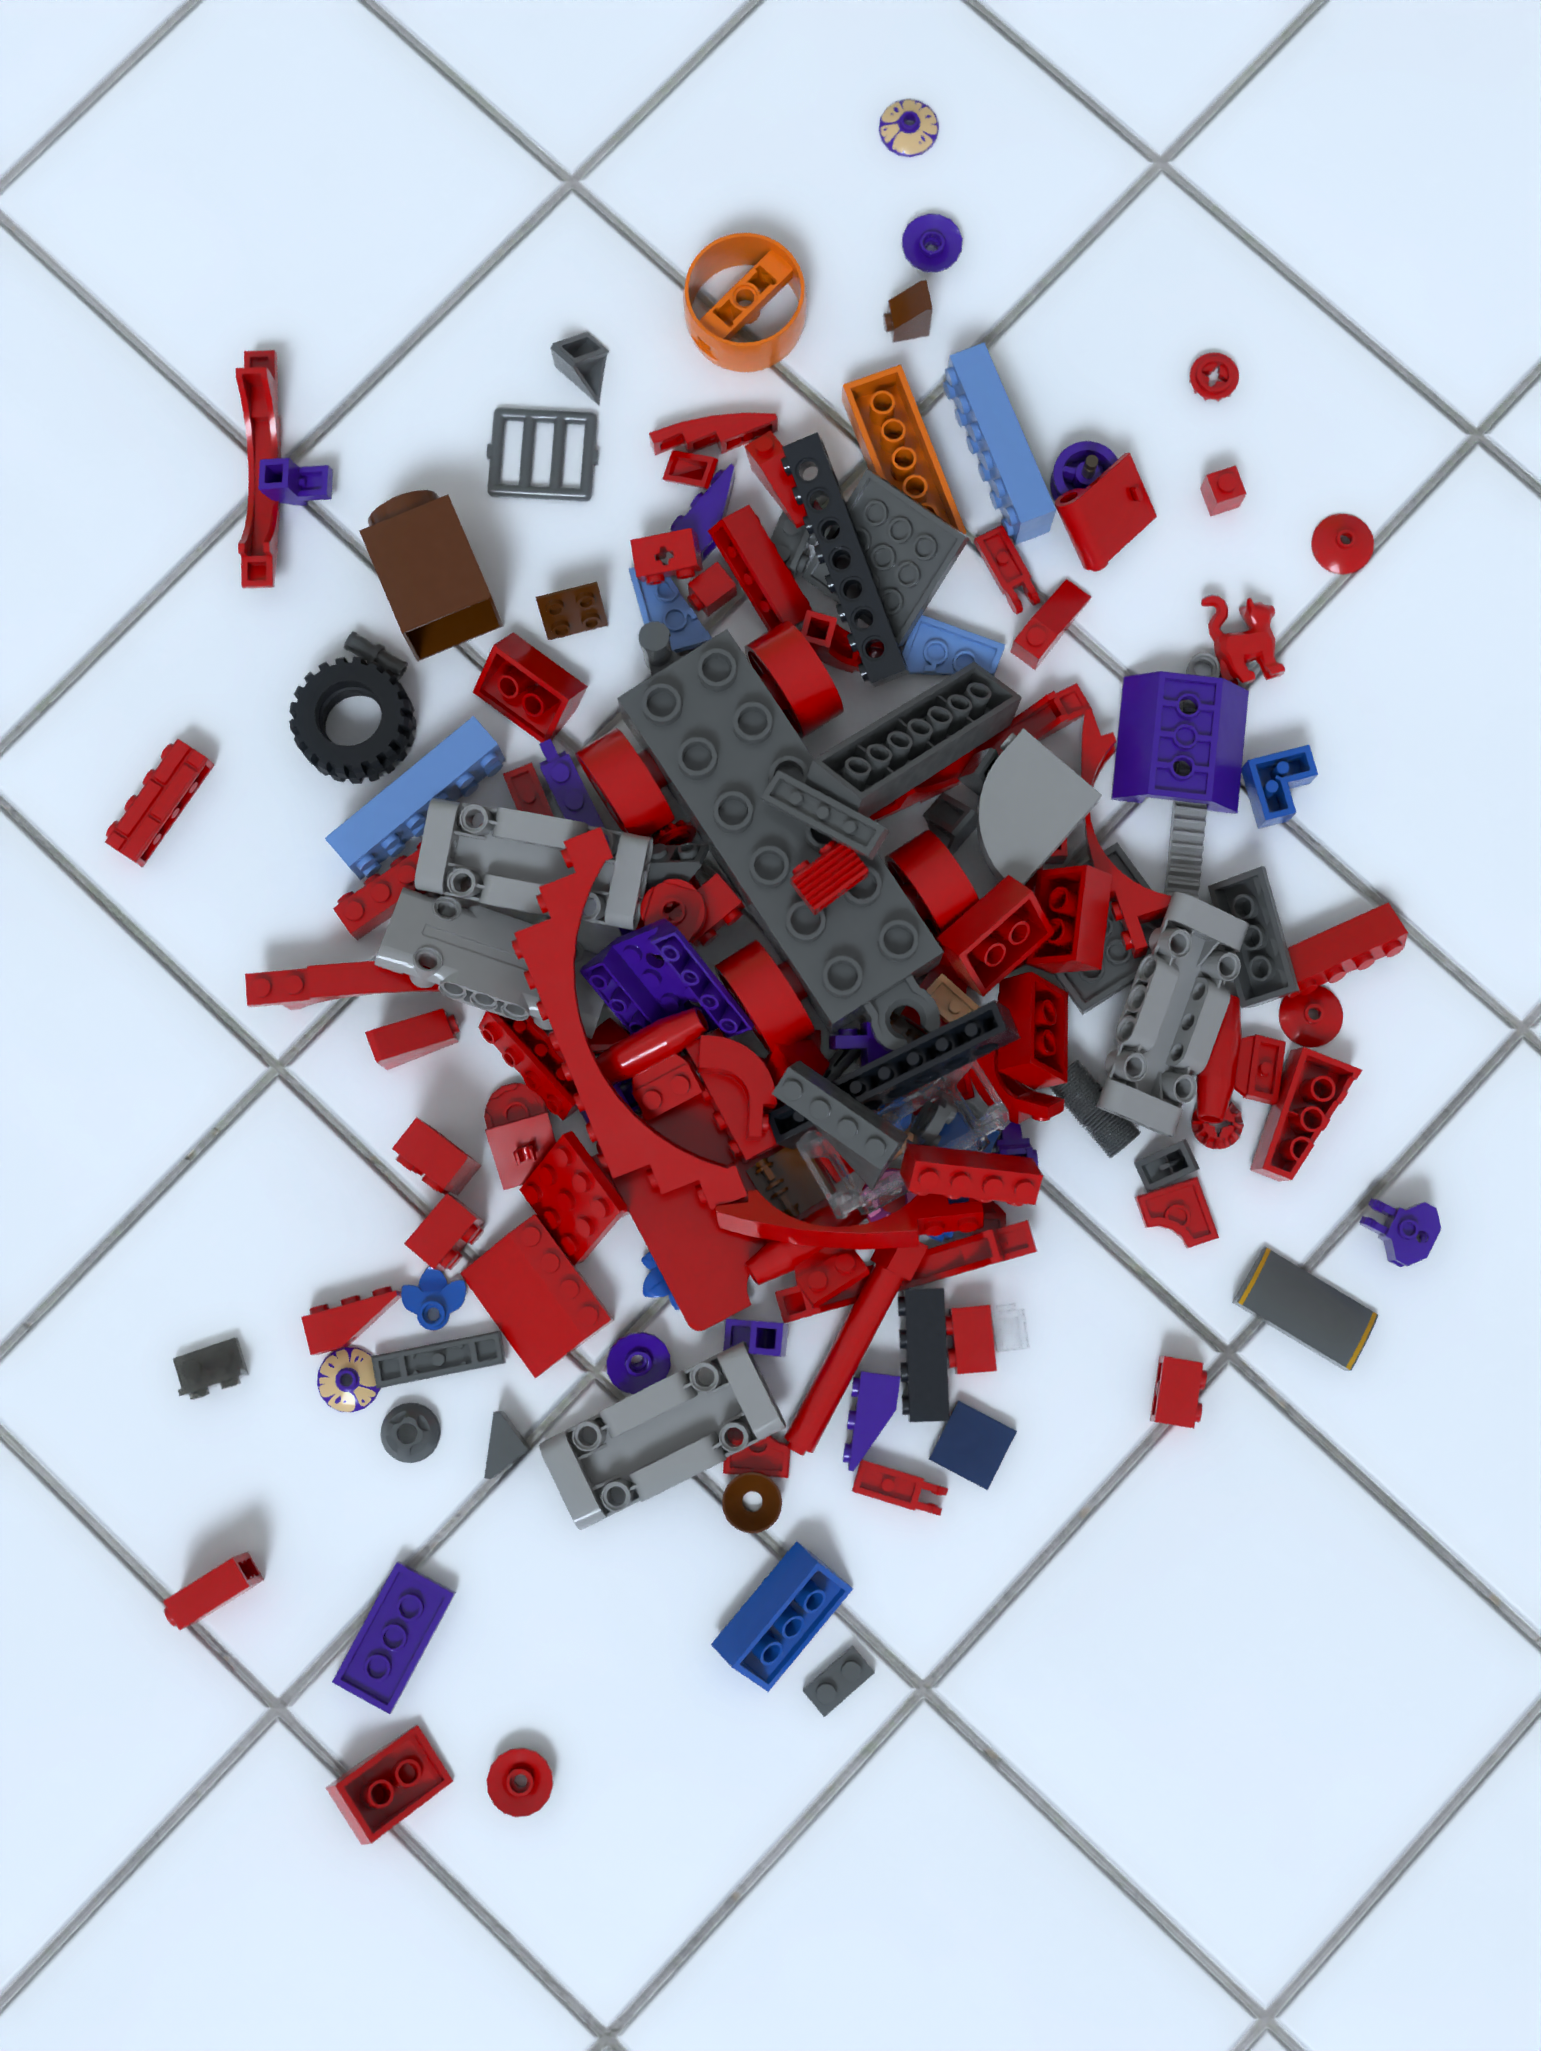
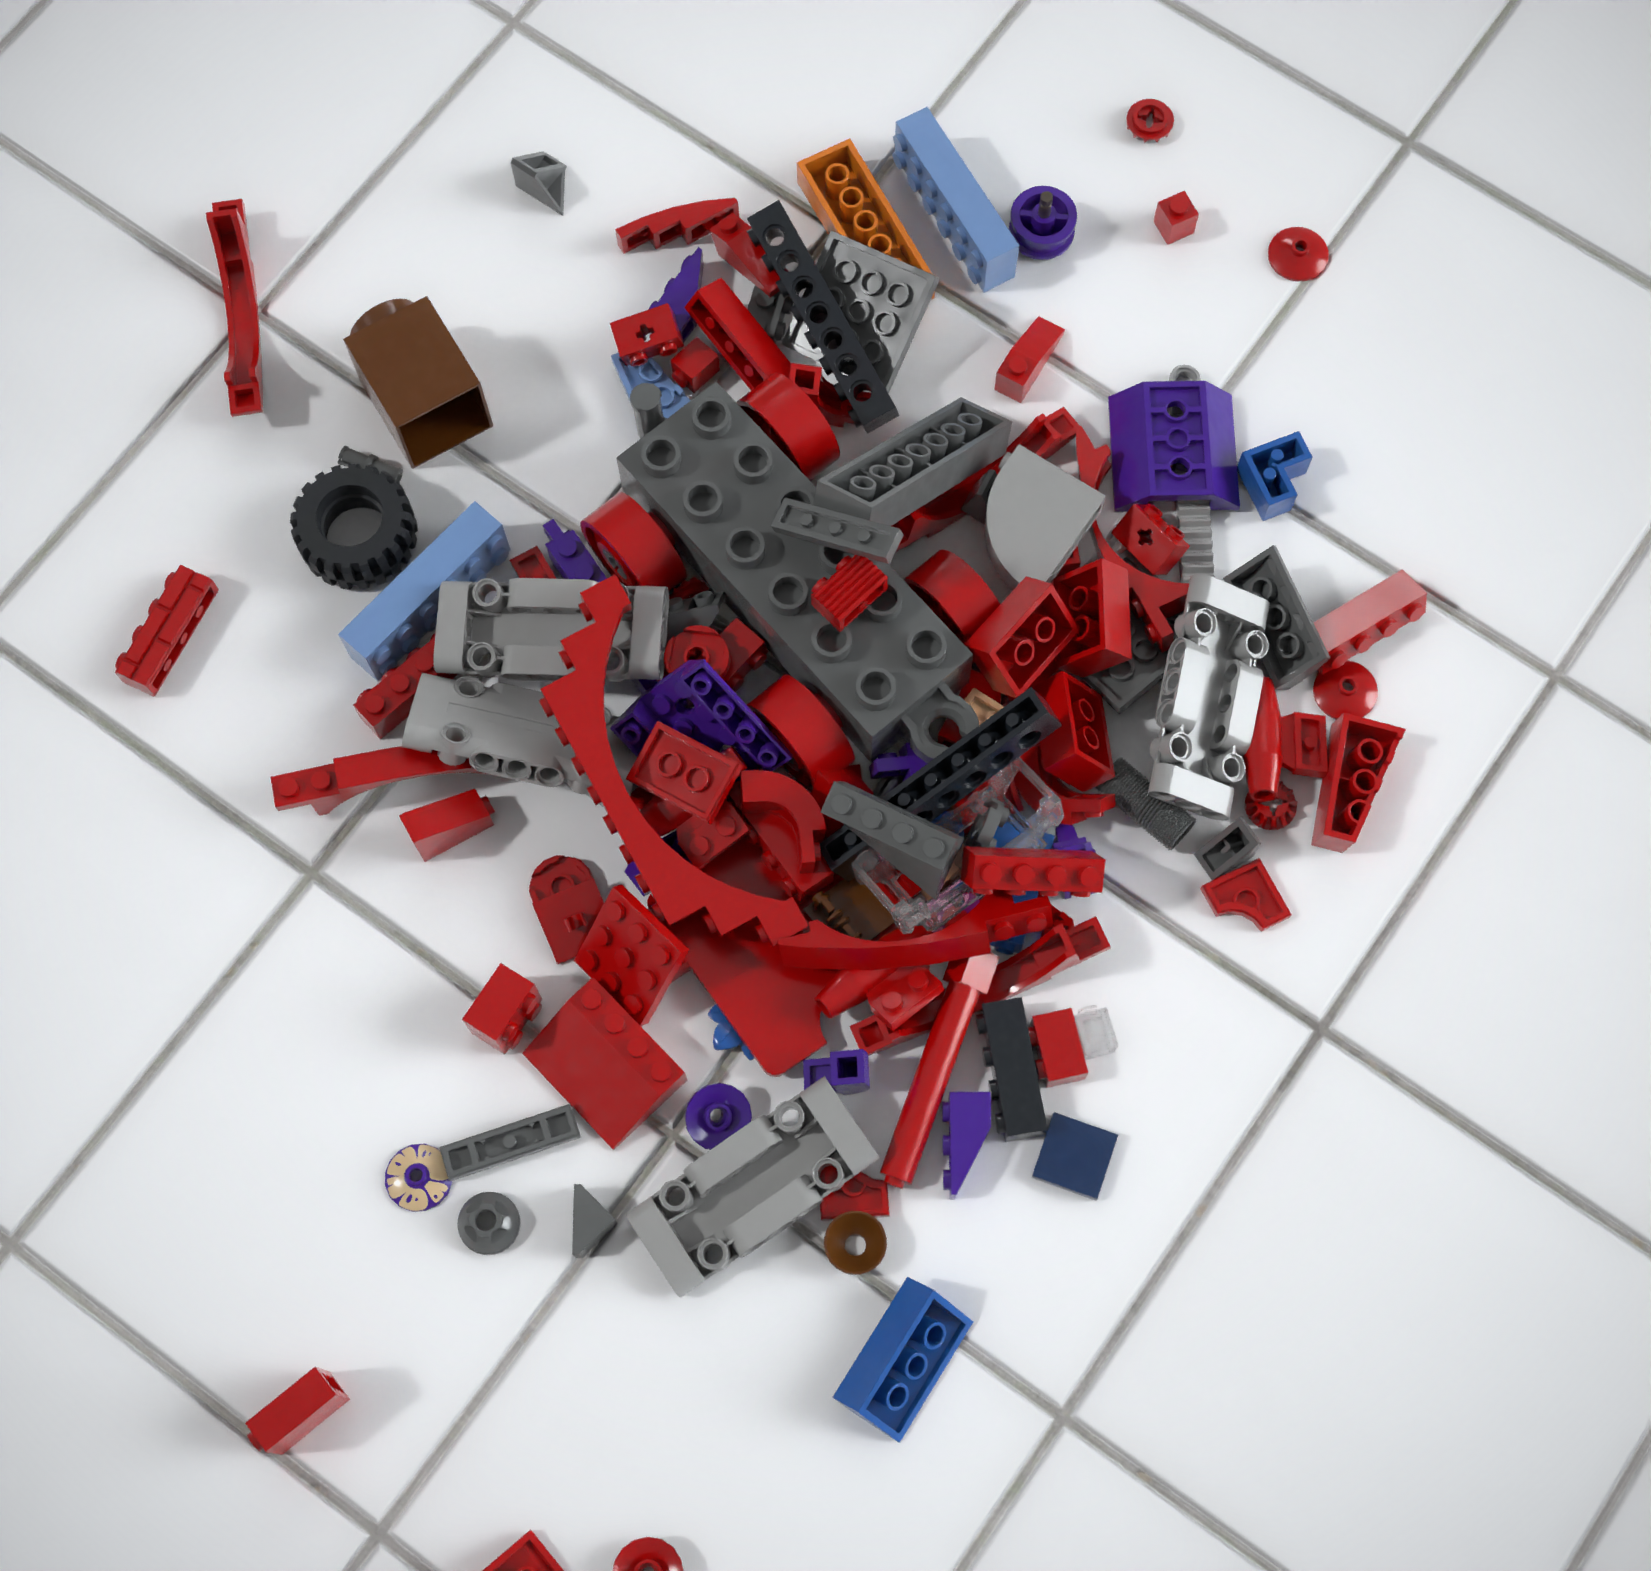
camera: 10 degrees left, 10 degrees down
(209, 1367) = (271, 1183): clear smoke bracket -> none
(294, 485) = (270, 318): dark purple brick -> none
(342, 1325) = (407, 1118): red slope -> none
(394, 1637) = (495, 1438): dark purple plate -> none
(431, 1293) = (498, 1077): blue plate -> none
(432, 1154) = (485, 931): red brick -> none
(529, 418) = (499, 296): dark grey bar -> none
(529, 688) = (525, 477): red slope -> none
(534, 1057) = (574, 826): red brick -> none
(572, 611) = (560, 399): reddish brown hinge -> none
(645, 1029) = (684, 772): none -> red tile
(690, 469) = (660, 258): red slope -> none
(771, 272) = (711, 71): orange cylinder -> none
(838, 1681) = (971, 1420): dark grey plate -> none
(895, 1487) = (1002, 1209): red hinge -> none
(909, 313) = (852, 95): reddish brown slope -> none
(935, 231) = (863, 25): dark purple dish -> none
(946, 649) = (924, 390): medium blue wing -> none
(950, 821) = (965, 542): dark grey slope -> none
(1006, 567) = (979, 311): red hinge -> none
(1106, 513) = (1067, 248): red door -> none
(1142, 837) = (1135, 534): none -> red brick
(1178, 1392) = (1276, 1072): red brick -> none
(1238, 648) = (1217, 356): red animal -> none
(1306, 1309) = (1391, 975): dark grey slope -> none
(1401, 1231) = (1479, 881): dark purple hinge -> none

